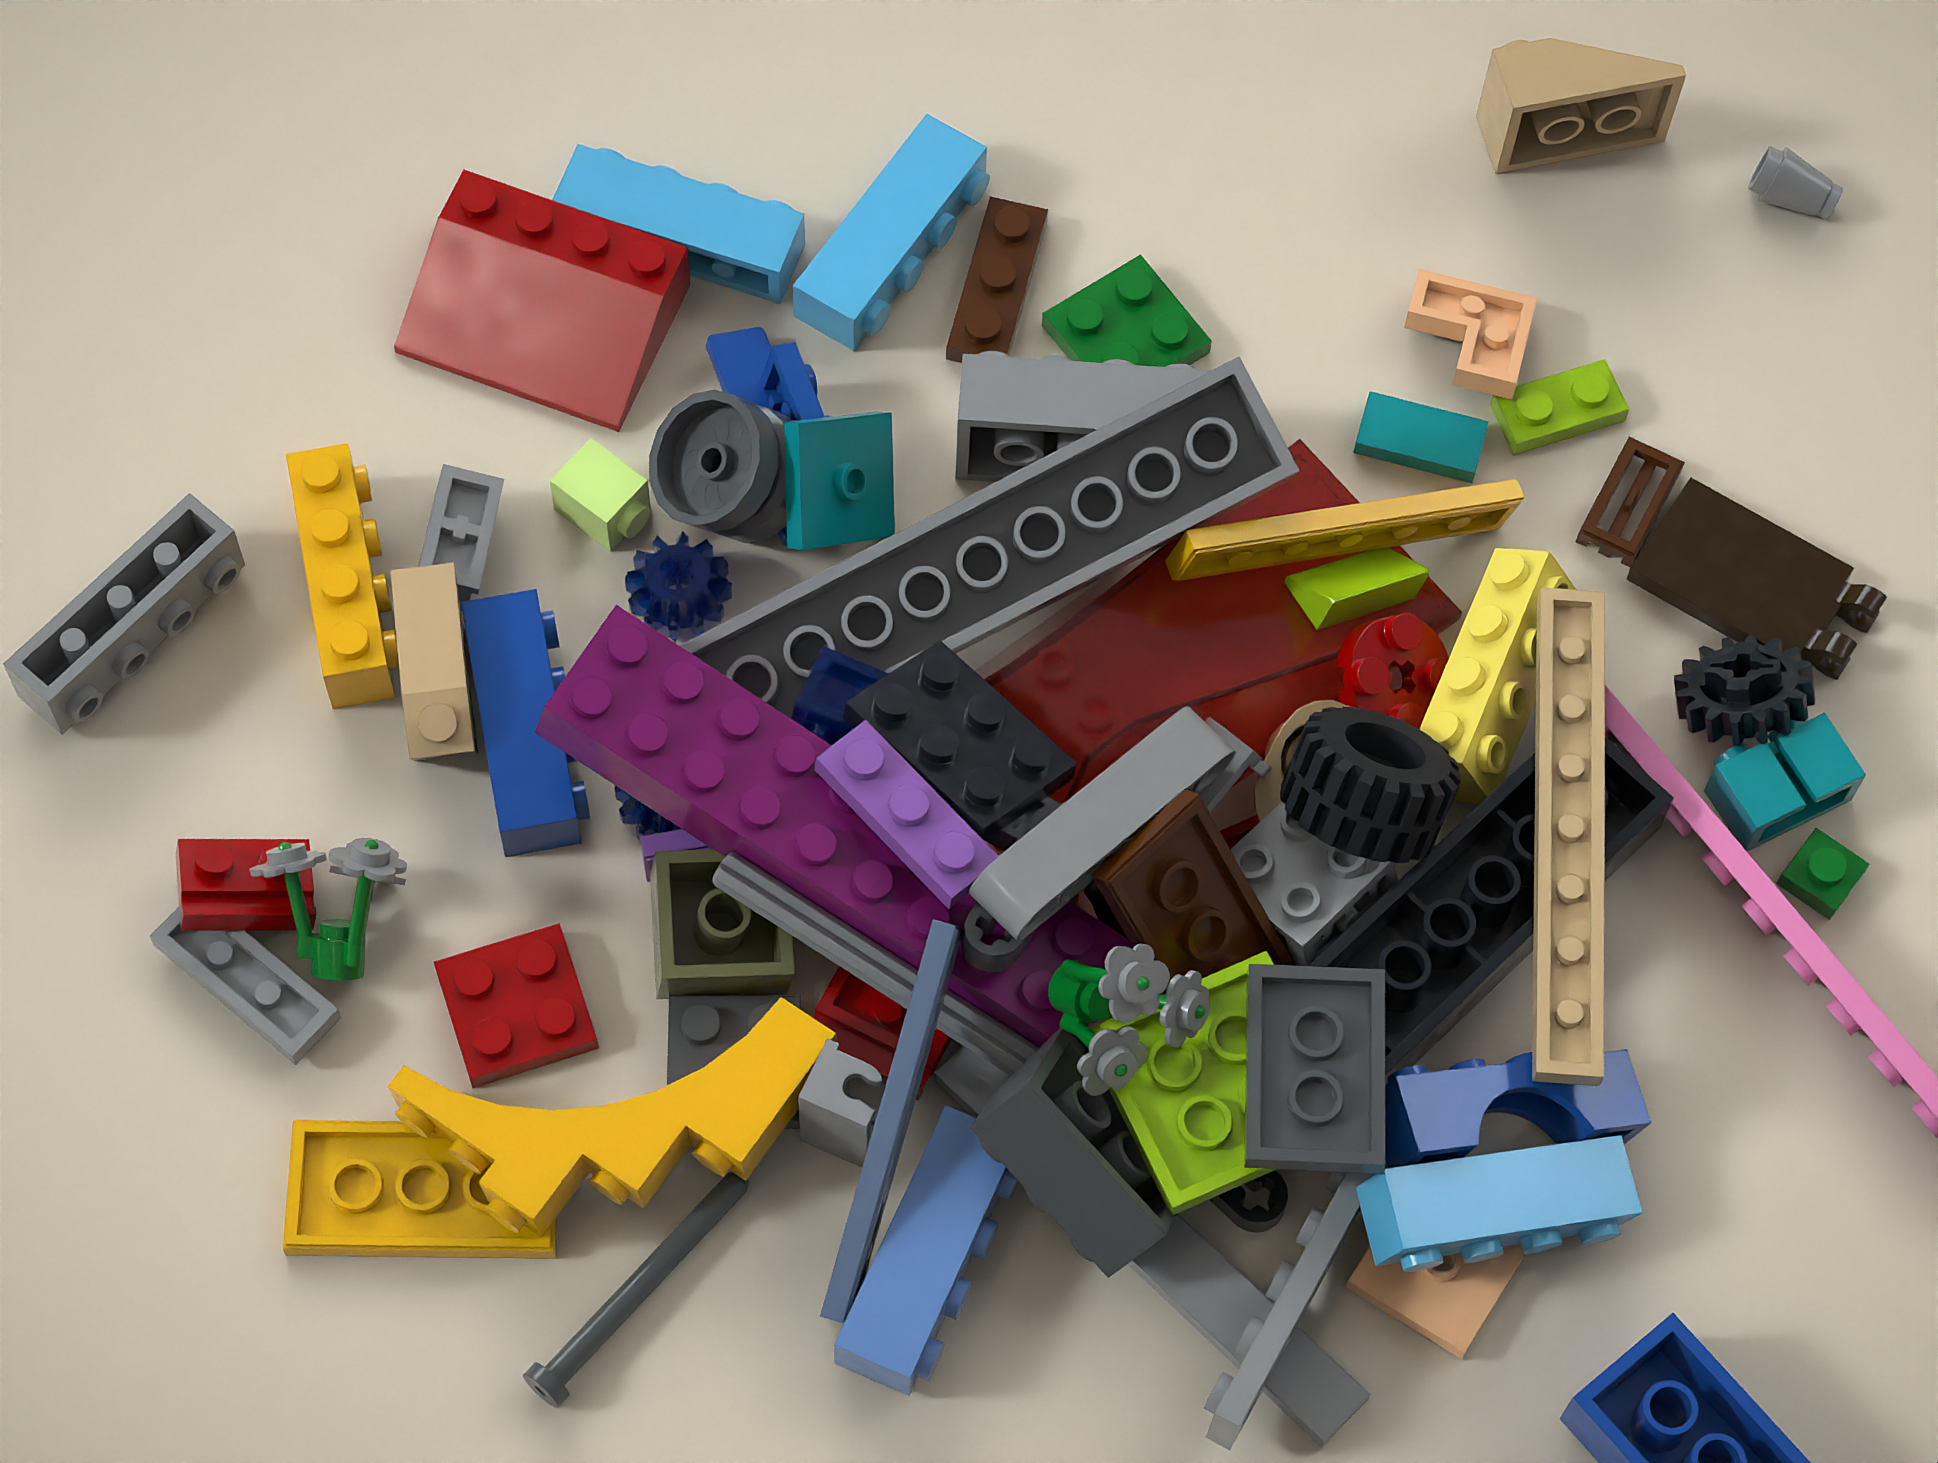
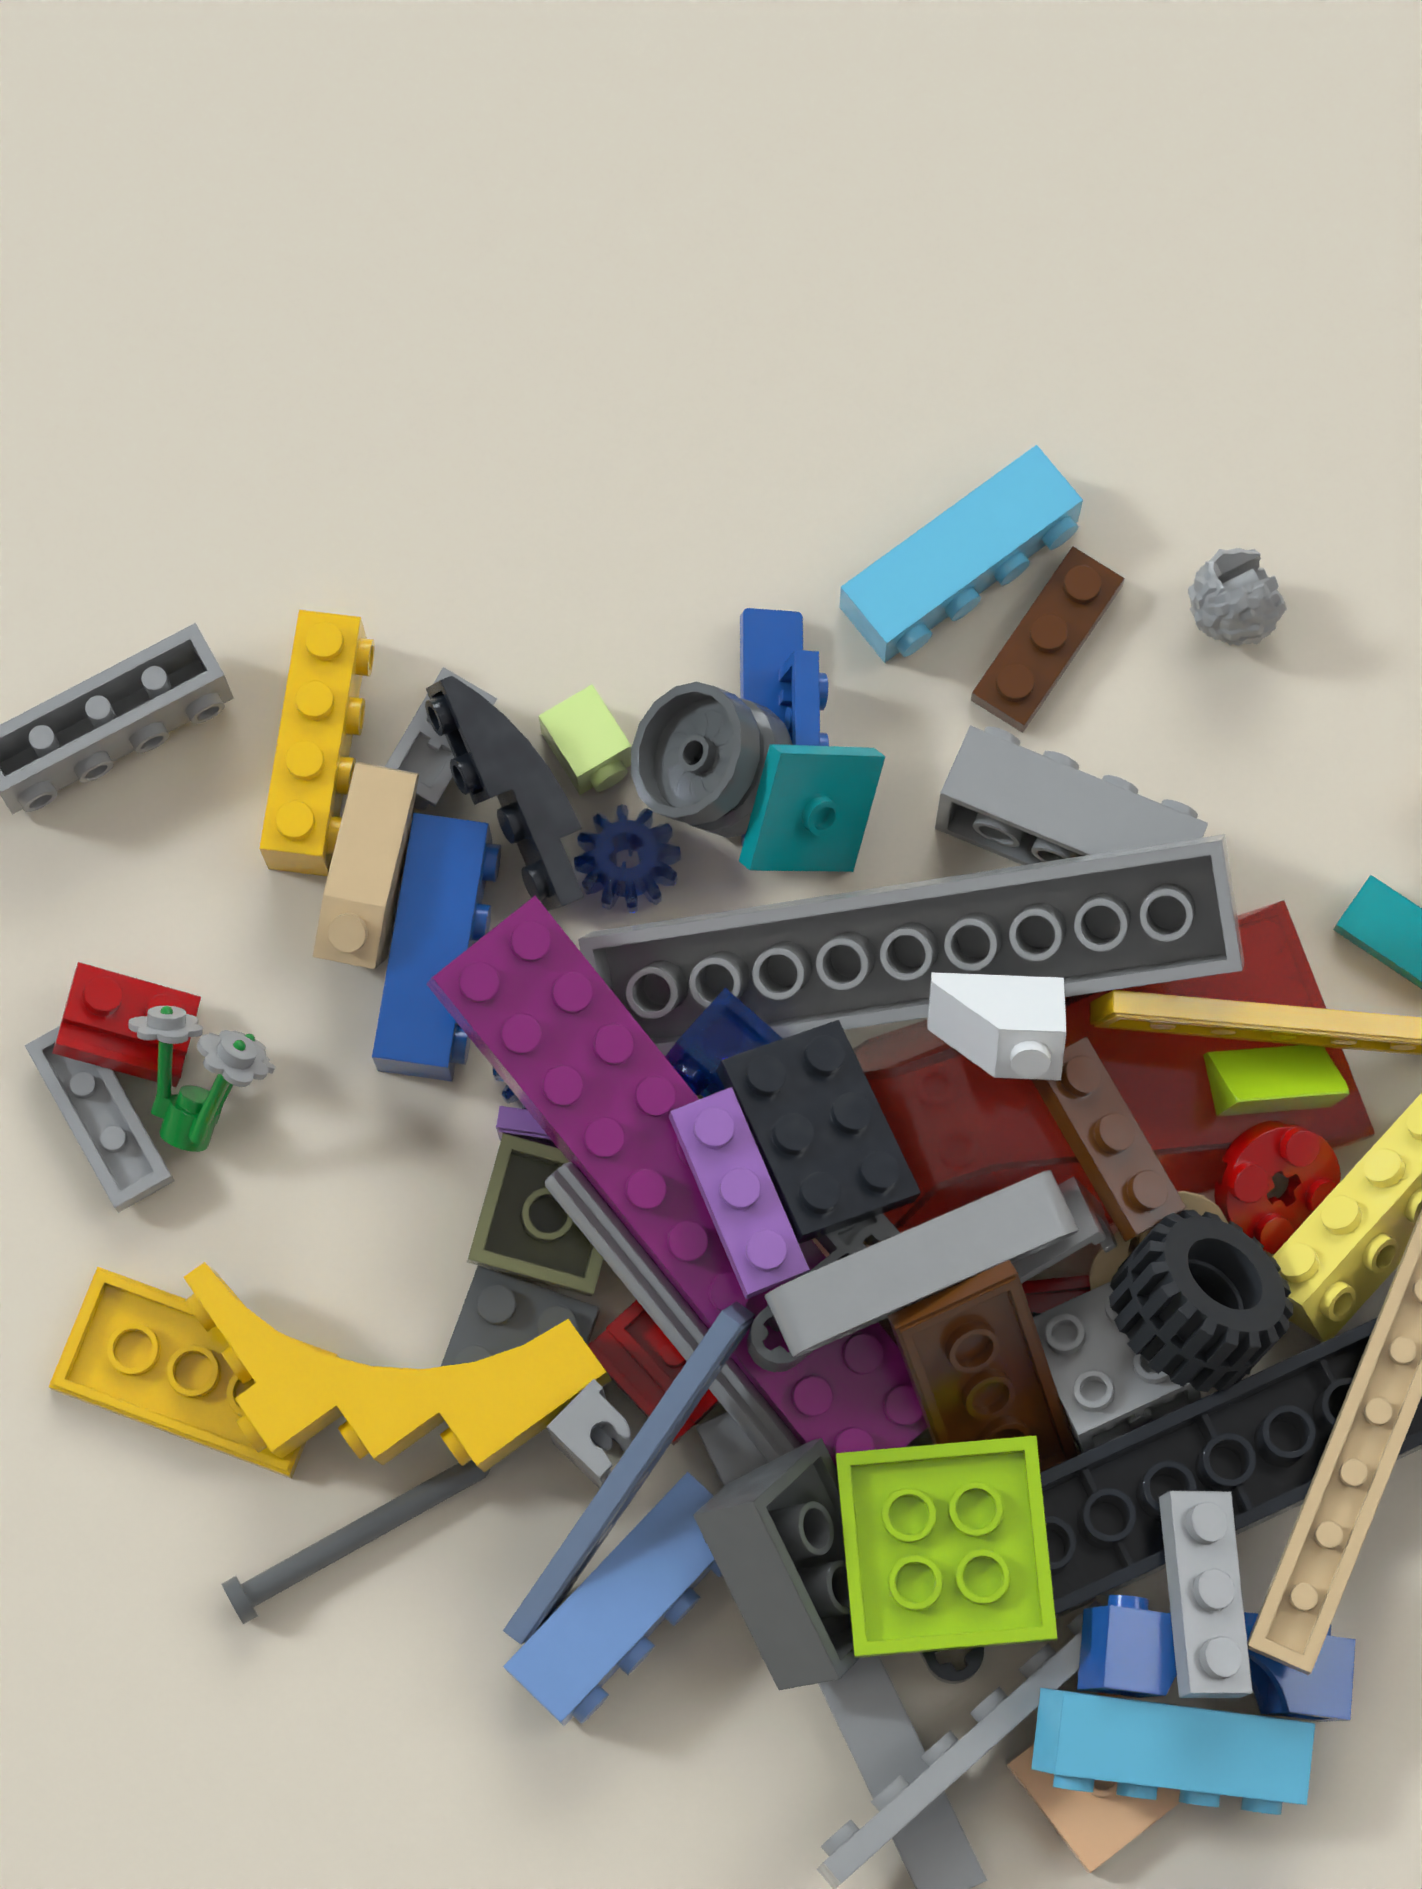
camera: 25 degrees right, 10 degrees up
(516, 1005) = (336, 1223): red plate -> none
(532, 530) = (501, 762): none -> black slope
(543, 300) = (600, 519): slope -> none
(727, 234) = (759, 477): medium azure brick -> none
(1095, 587) = (1002, 1022): none -> white slope
(1123, 990) = (876, 1448): light grey plant -> none
(1127, 319) = (1157, 728): green plate -> none
(1155, 193) = (1235, 598): none -> light grey piece
(1226, 668) = (1109, 1142): none -> reddish brown plate
(1315, 1068) = (1034, 1573): dark grey plate -> none
(1478, 1042) = (1205, 1594): none -> light grey plate

